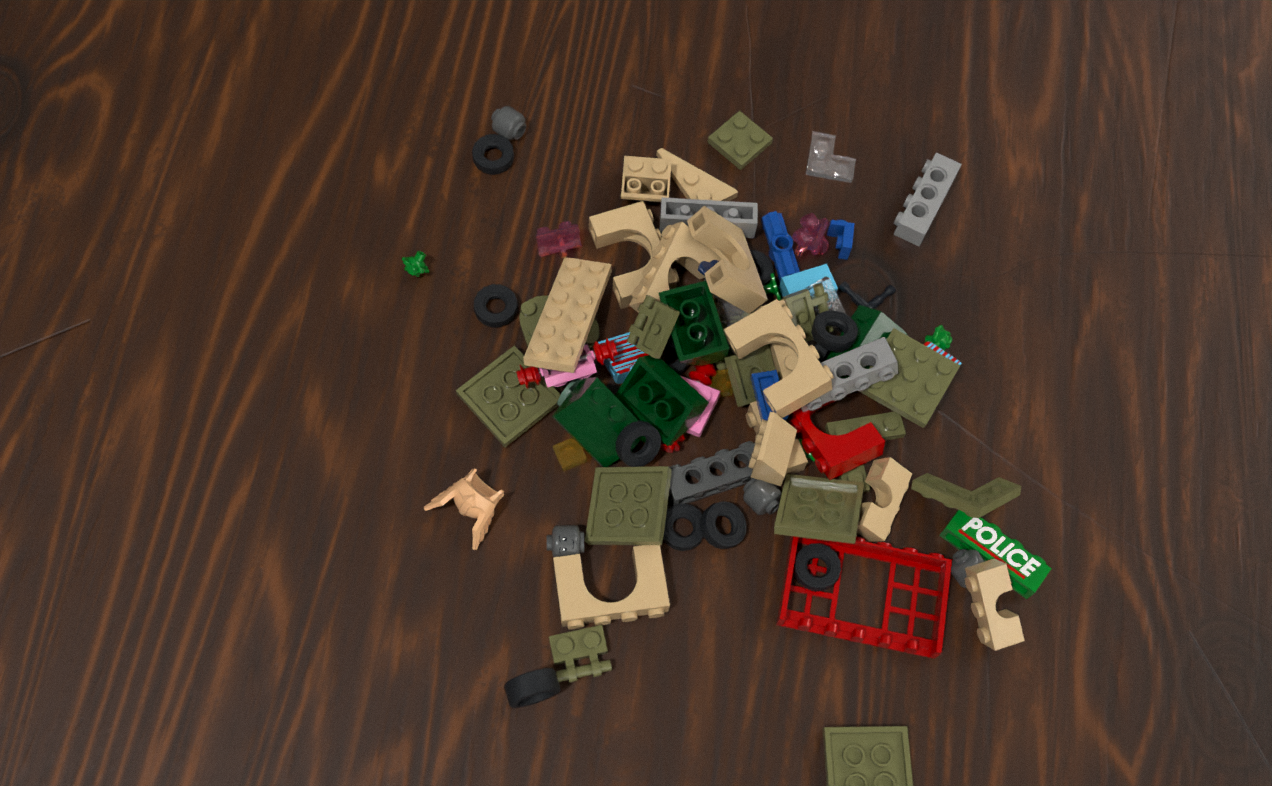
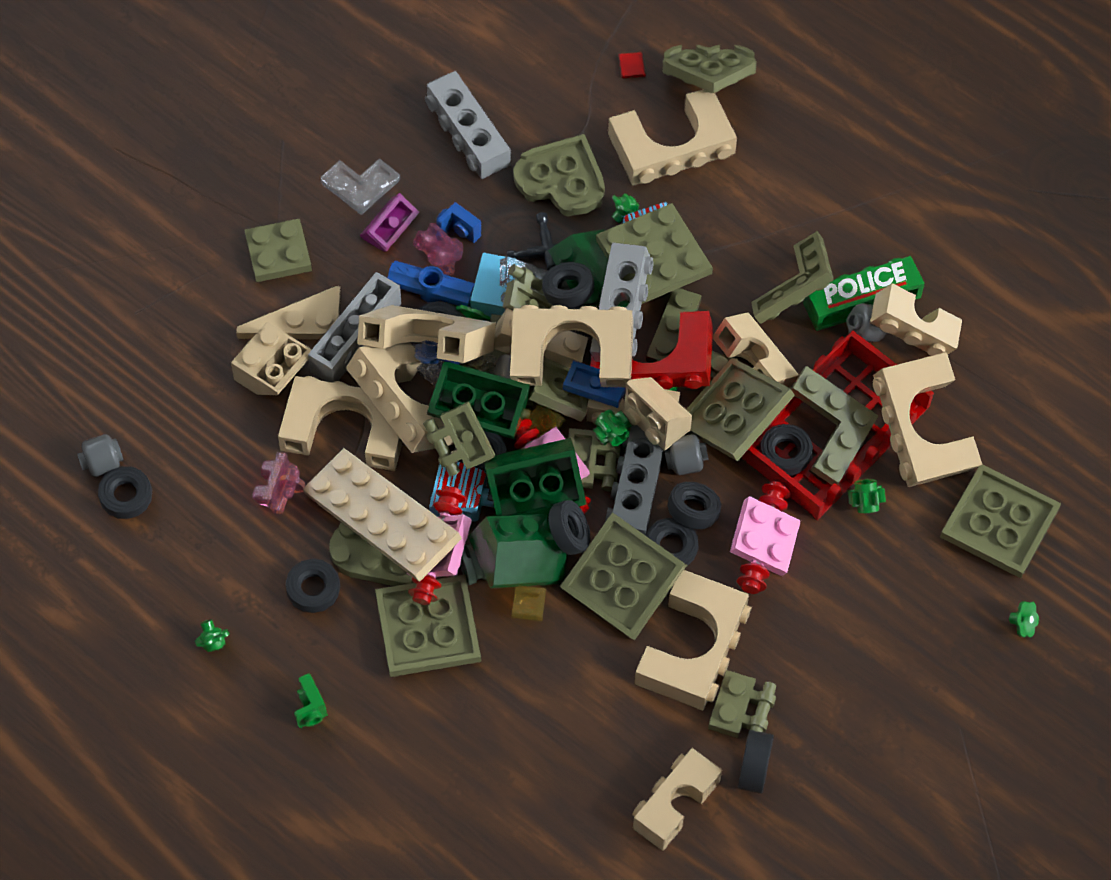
camera: 55 degrees left, 5 degrees down
(406, 353) = (313, 704): none -> green bracket
(449, 639) = (691, 777): none -> tan arch
(473, 500) = (524, 719): light nougat helmet -> none
(565, 540) = (622, 655): dark grey head -> none
(720, 422) = (587, 449): none -> olive plate
(731, 591) = (764, 537): none -> bright pink plate
(742, 429) = (612, 427): none -> green gear
(812, 196) = (389, 223): none -> magenta slope
(816, 650) = (866, 496): none -> green gear
(874, 675) = (919, 458): none -> tan arch
(877, 600) = (848, 414): none -> olive plate
(934, 283) = (562, 173): none -> olive plate
(1040, 367) = (649, 160): none -> tan arch
(1066, 280) = (632, 65): none -> red piece
(1104, 331) = (710, 66): none -> olive plate

